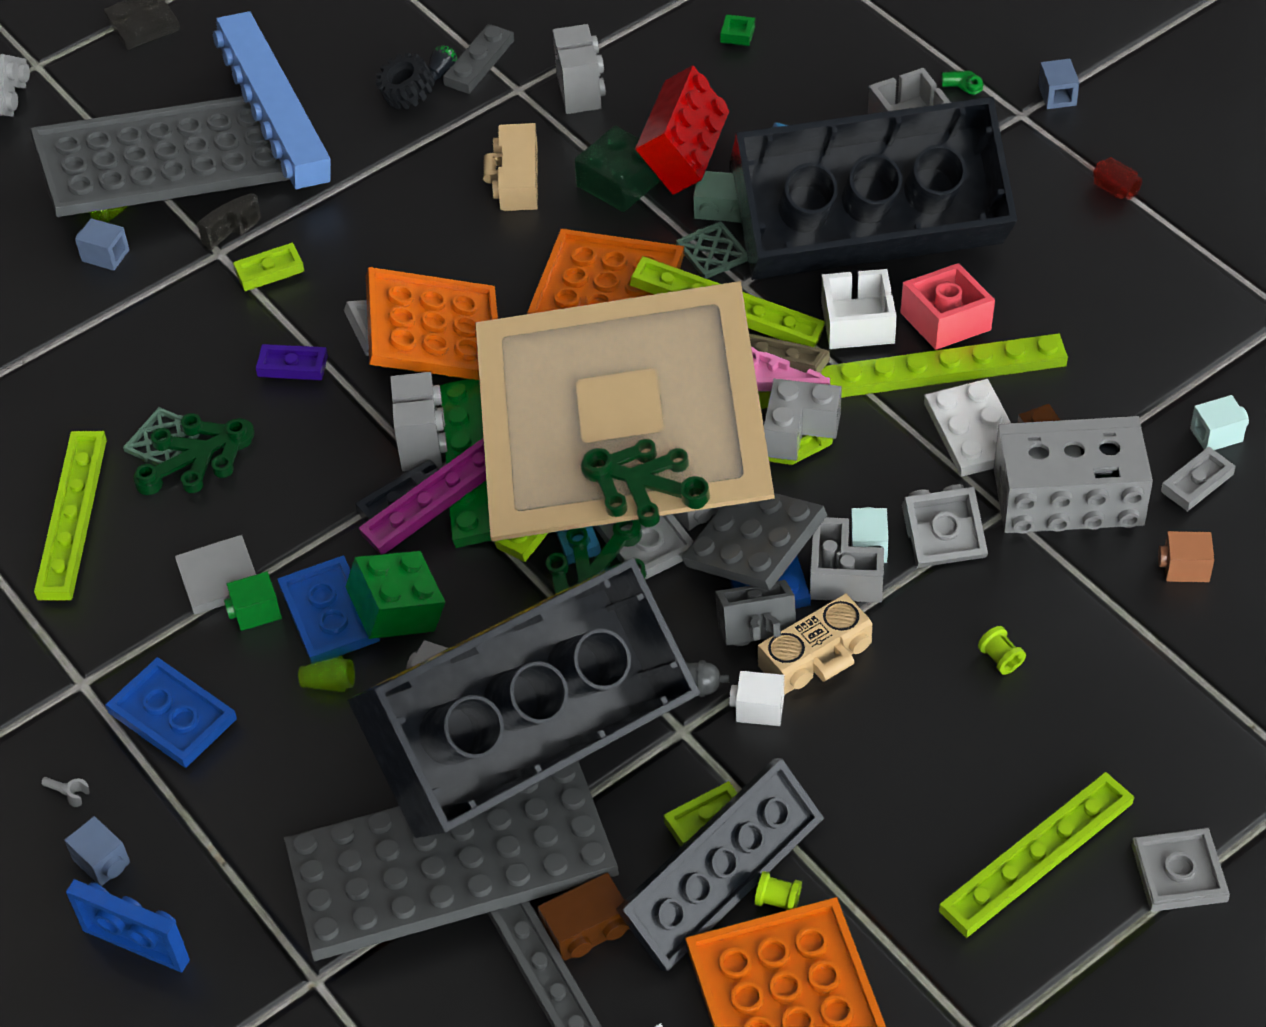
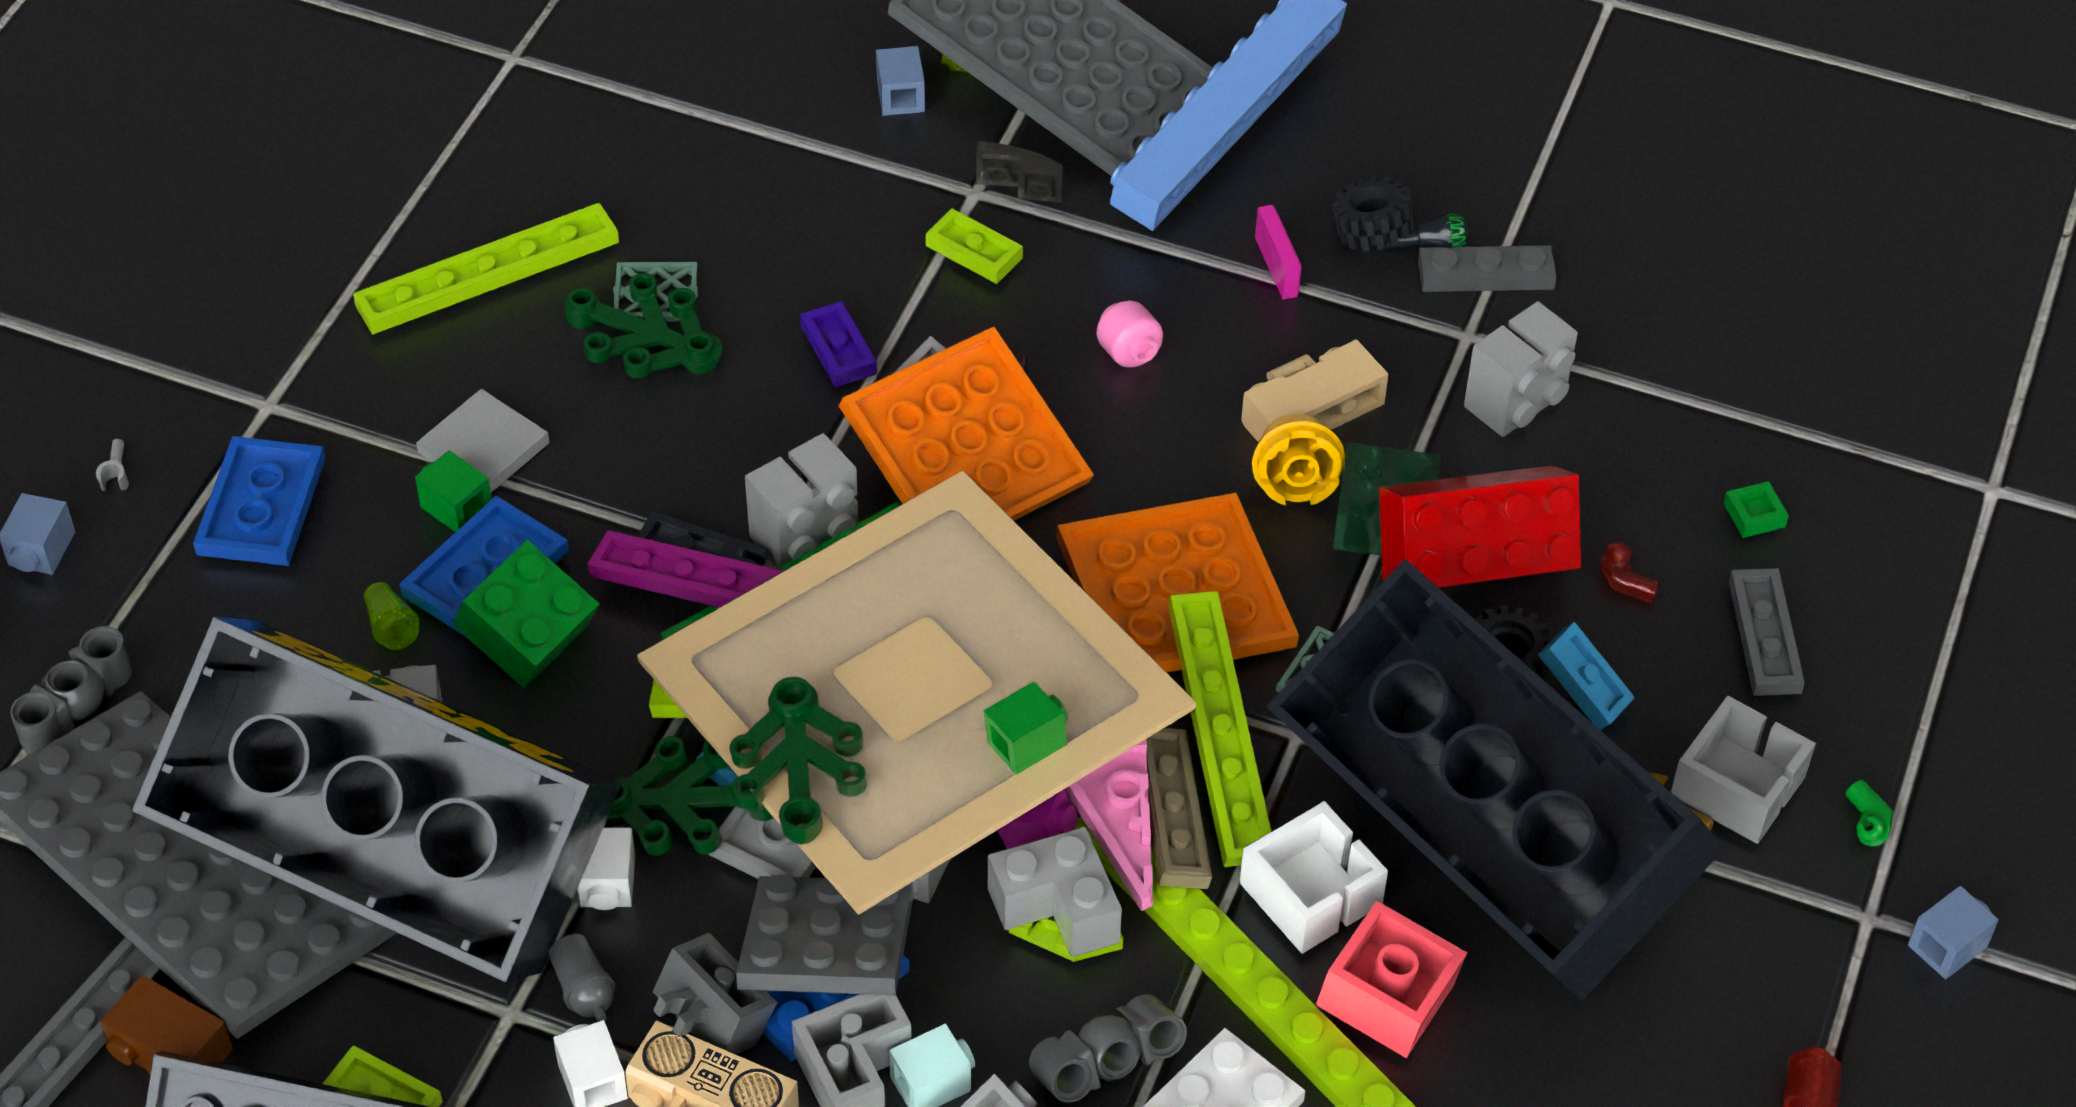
camera: 55 degrees right, 0 degrees up
(260, 890) = (72, 689): none -> dark grey piece
(395, 134) = (1278, 251): none -> dark pink tile
(401, 224) = (1129, 333): none -> bright pink head
(563, 188) = (1298, 460): none -> yellow cone
(710, 357) = (1026, 727): none -> green brick
(744, 102) = (1622, 577): none -> clear red arm
(820, 63) = (1766, 632): none -> dark grey plate
(909, 448) = (1107, 1048): none -> dark grey piece

